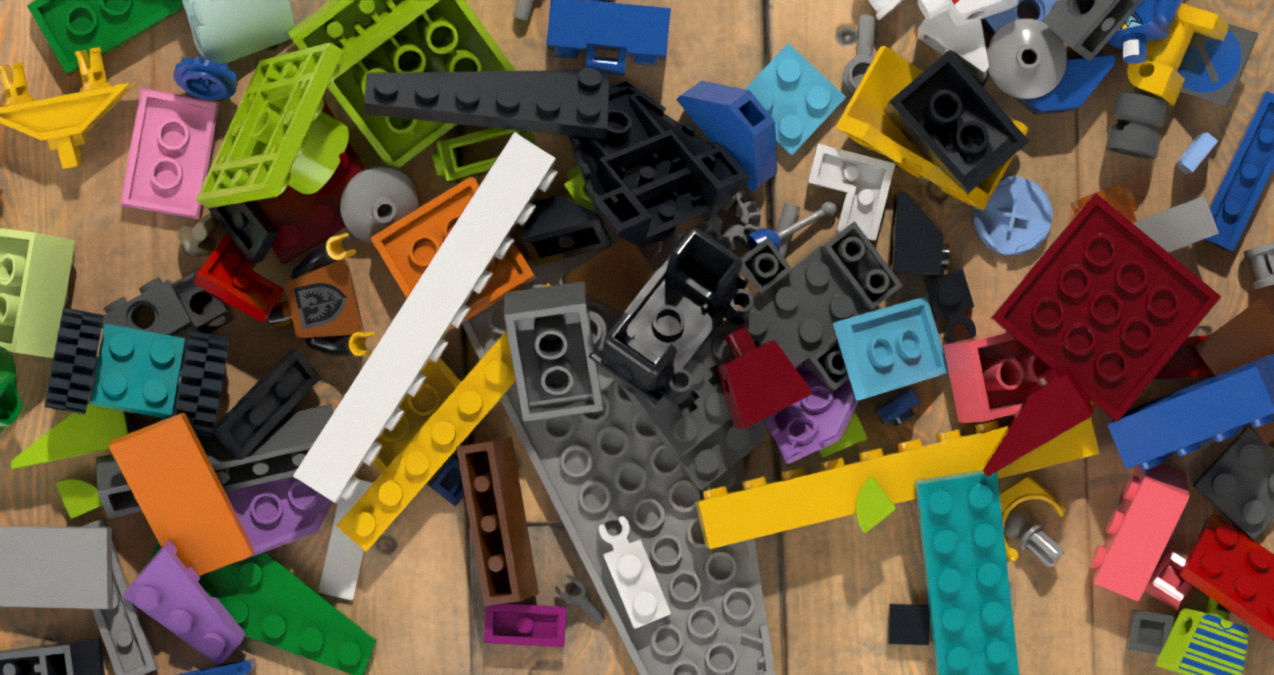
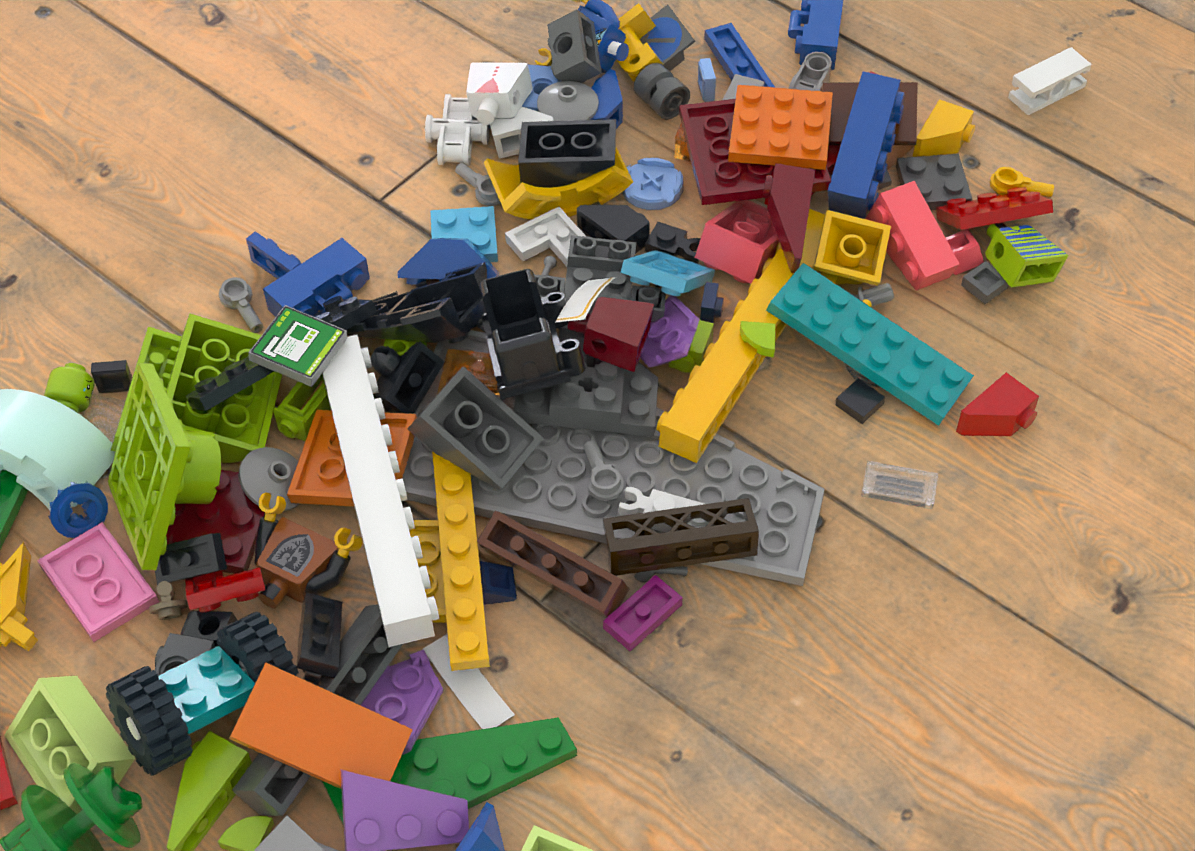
camera: 45 degrees left, 35 degrees down
(491, 128) = (298, 345): none -> tile
(565, 205) = (385, 360): none -> black hinge
(601, 618) = (683, 543): none -> dark brown fence
(613, 493) = (605, 481): none -> light grey plate
(769, 322) = (582, 300): none -> white sticker
(1064, 495) = (852, 247): none -> yellow slope
(1145, 320) = (780, 127): none -> orange plate

